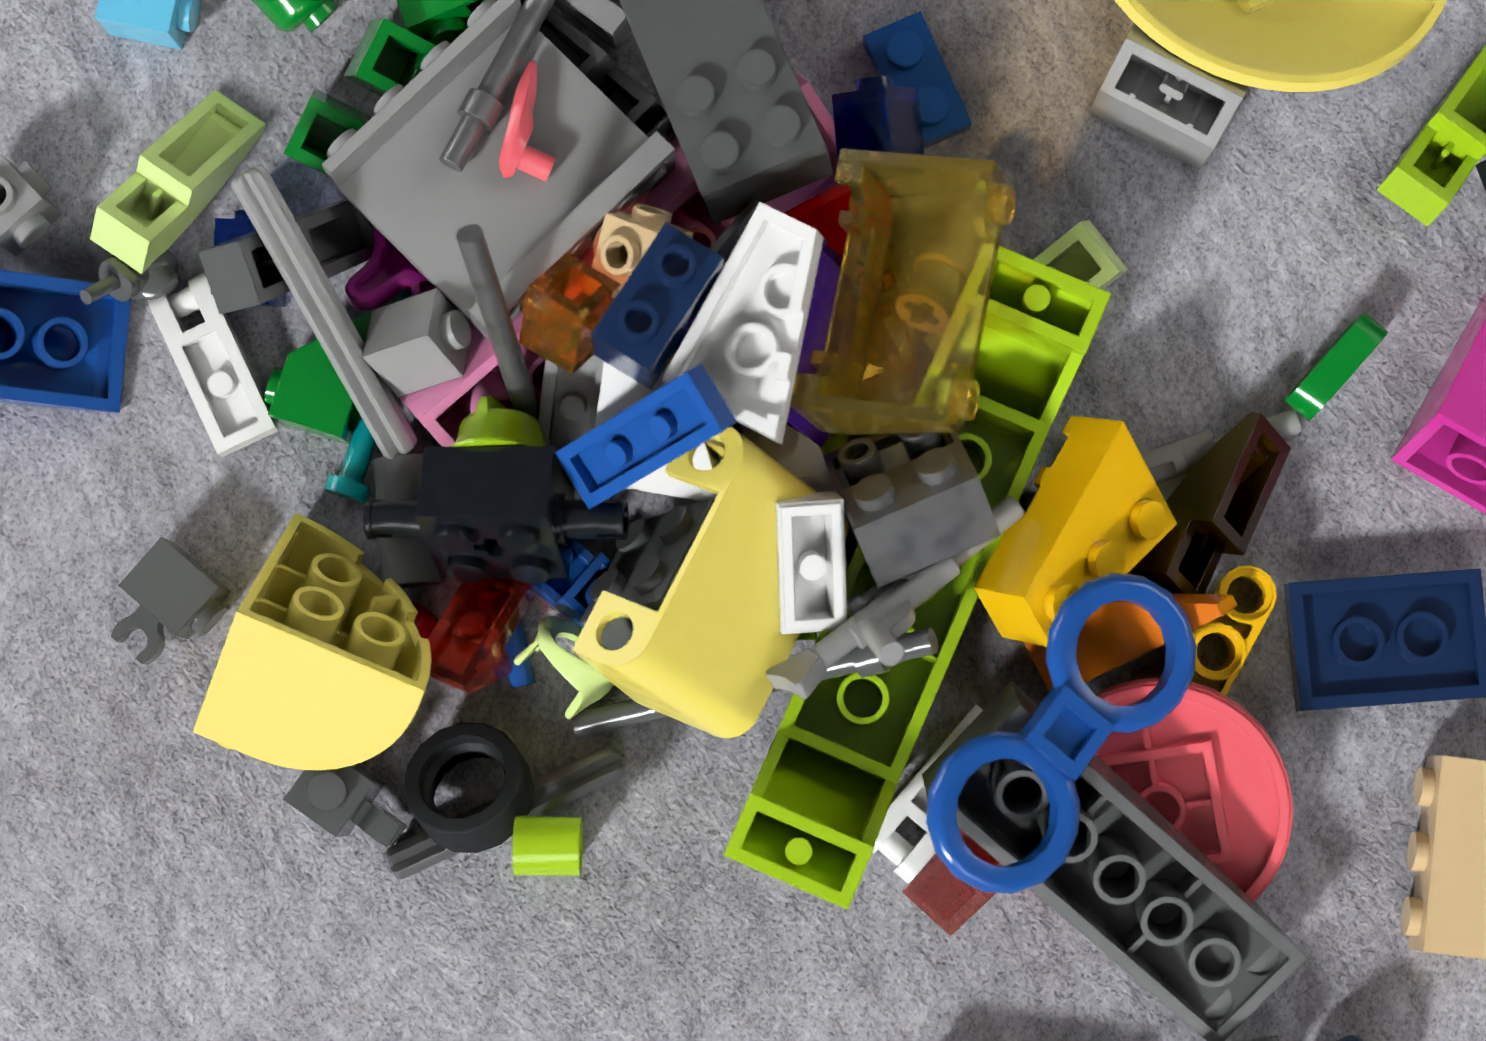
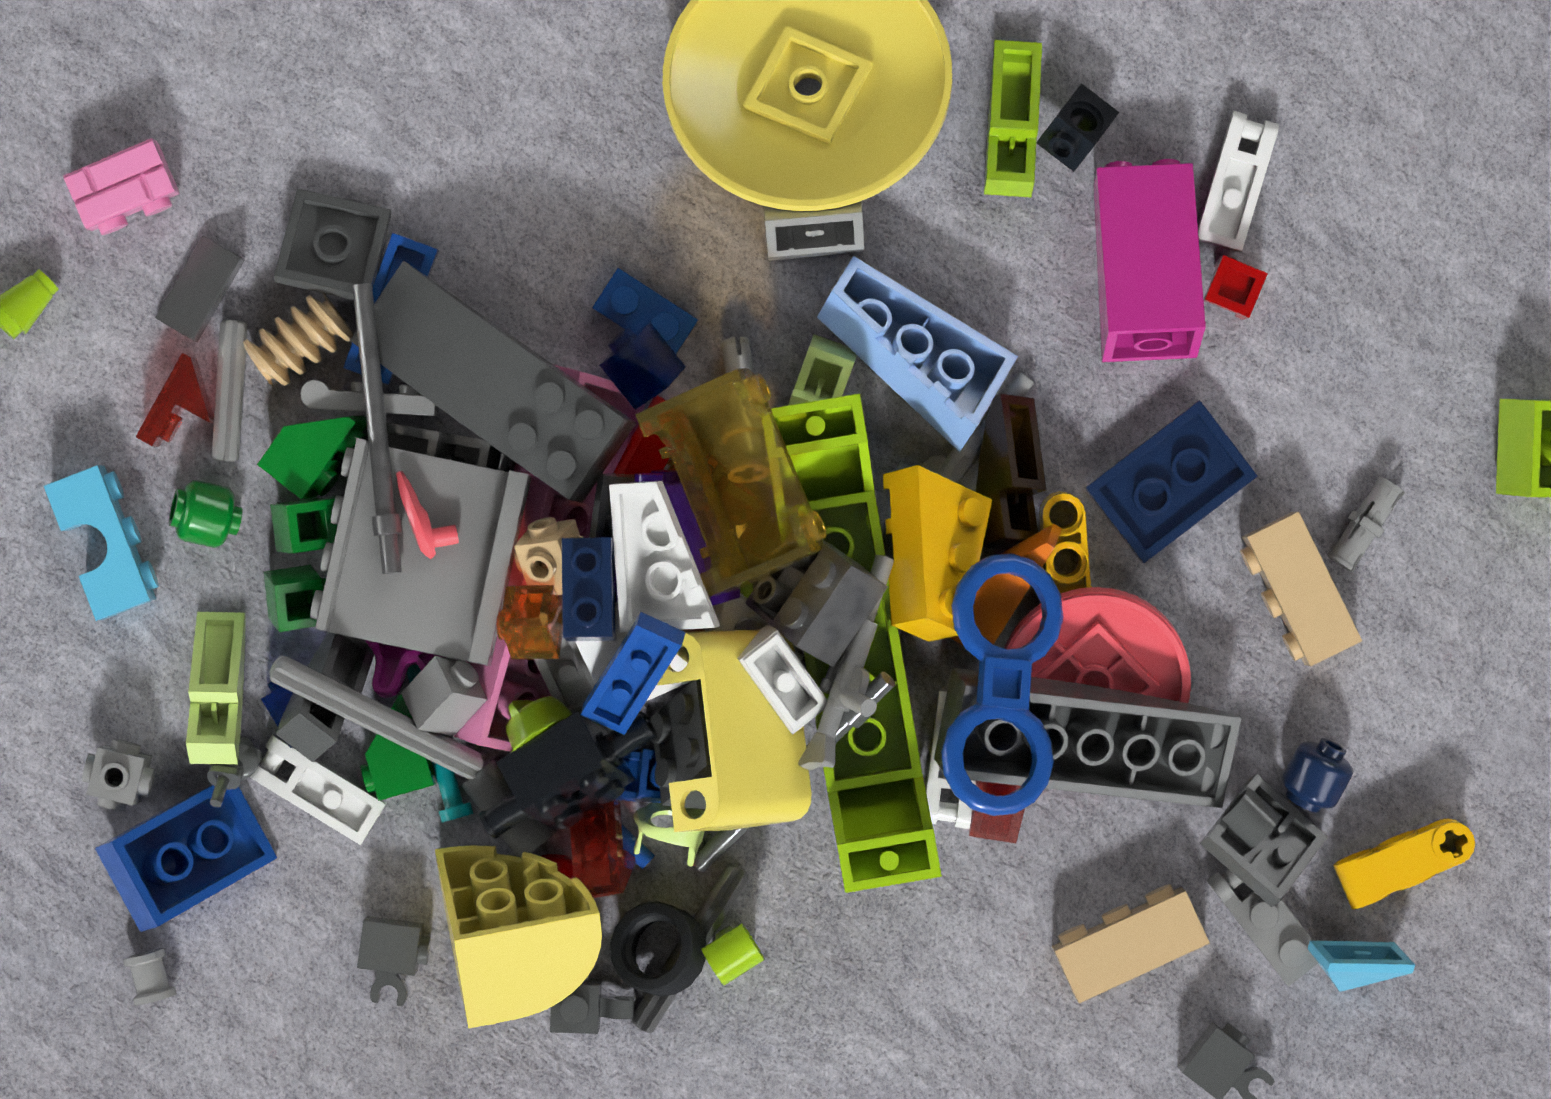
camera: 40 degrees left, 5 degrees up
(497, 318) = (493, 658): flat silver bar -> none
(1198, 304) = (917, 349): none -> light blue wedge
(1336, 366) = (1029, 327): green beam -> none

